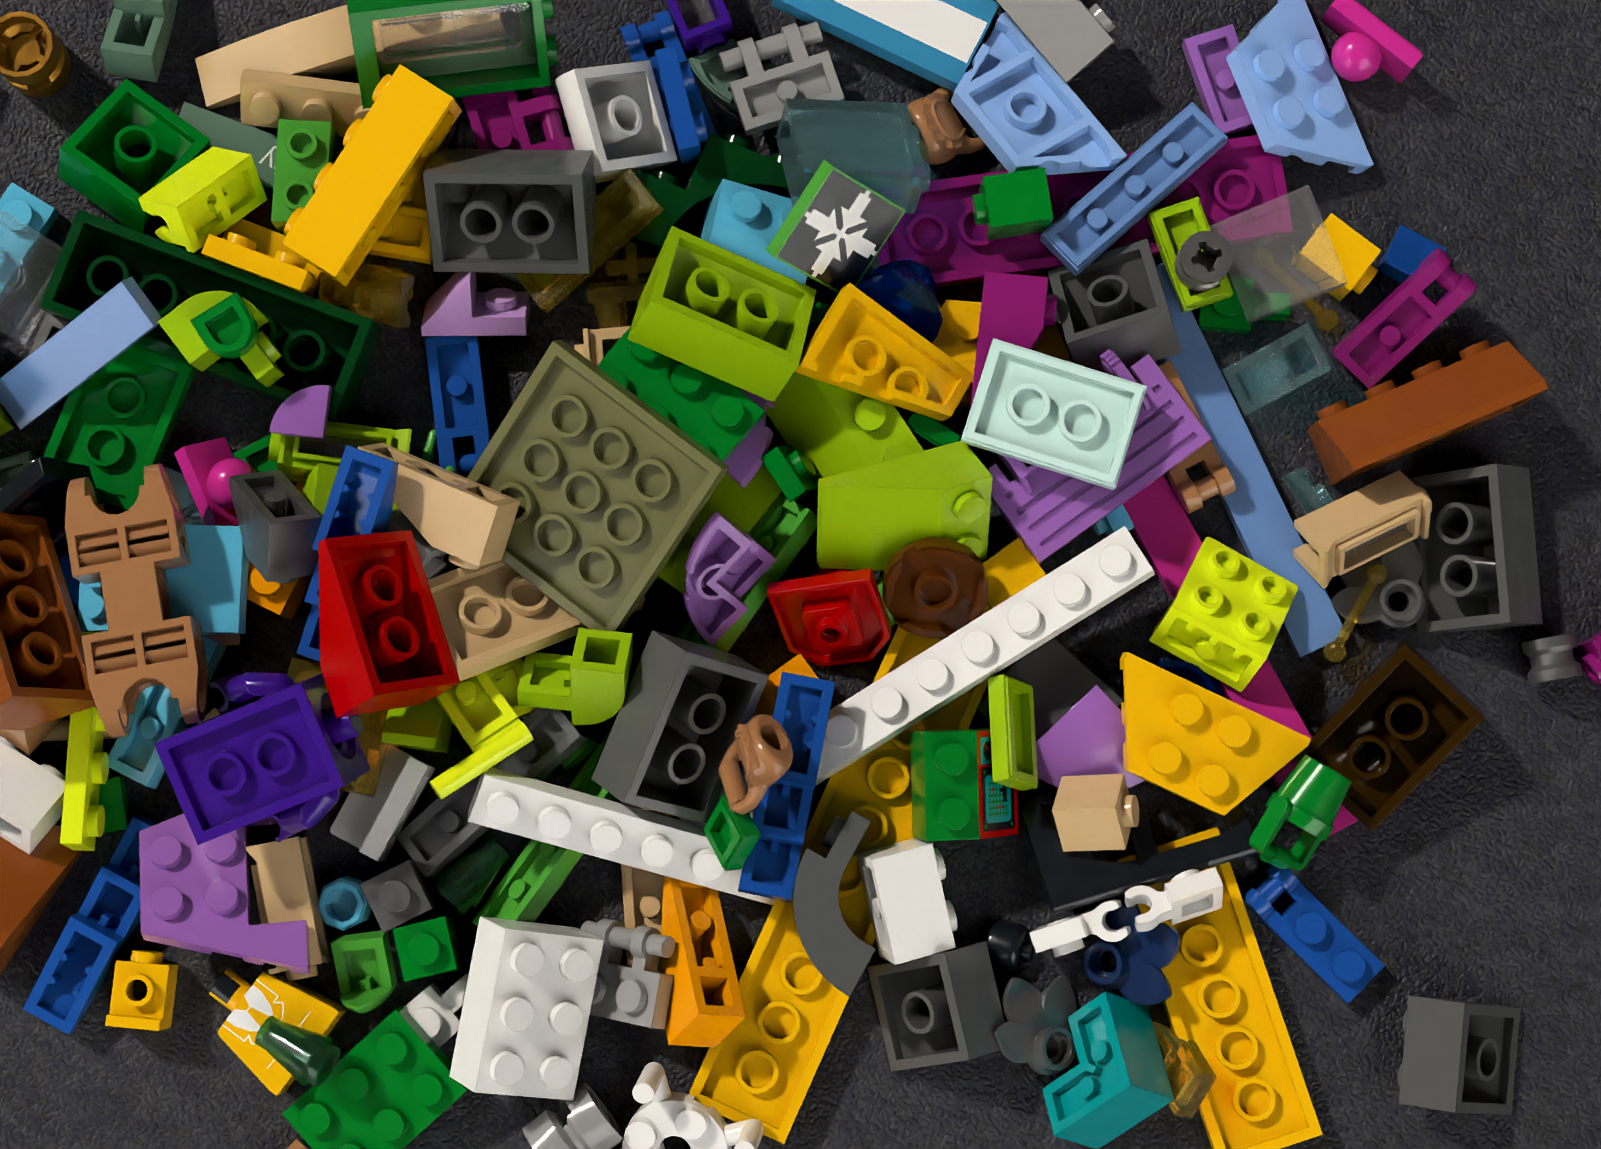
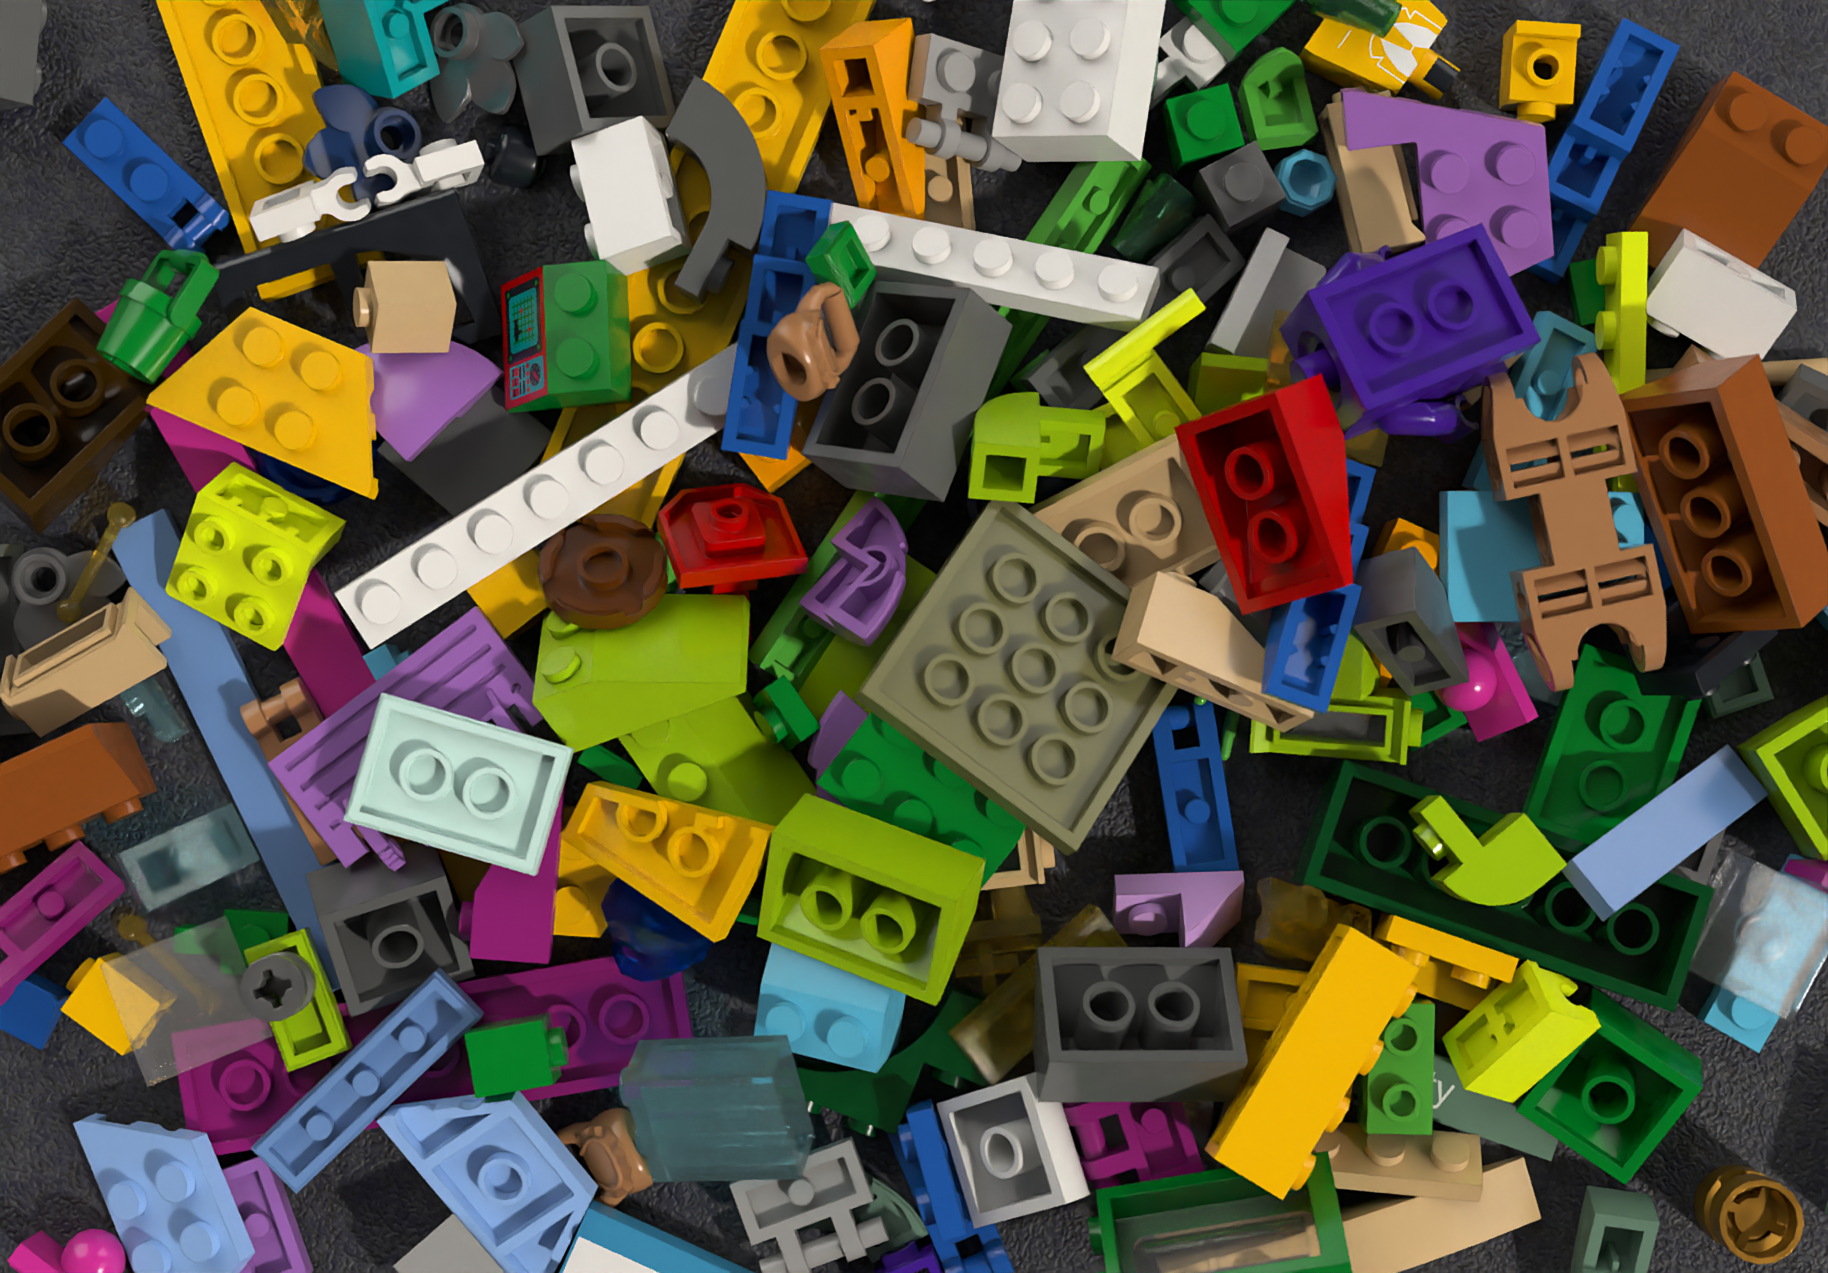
camera: 175 degrees left, 5 degrees up
(227, 327) = (1479, 857): green tile -> none
(304, 413) = (1381, 761): medium lavender tile -> none
(835, 228) = (733, 1010): tile -> none
(1012, 733) = (506, 399): lime tile -> none

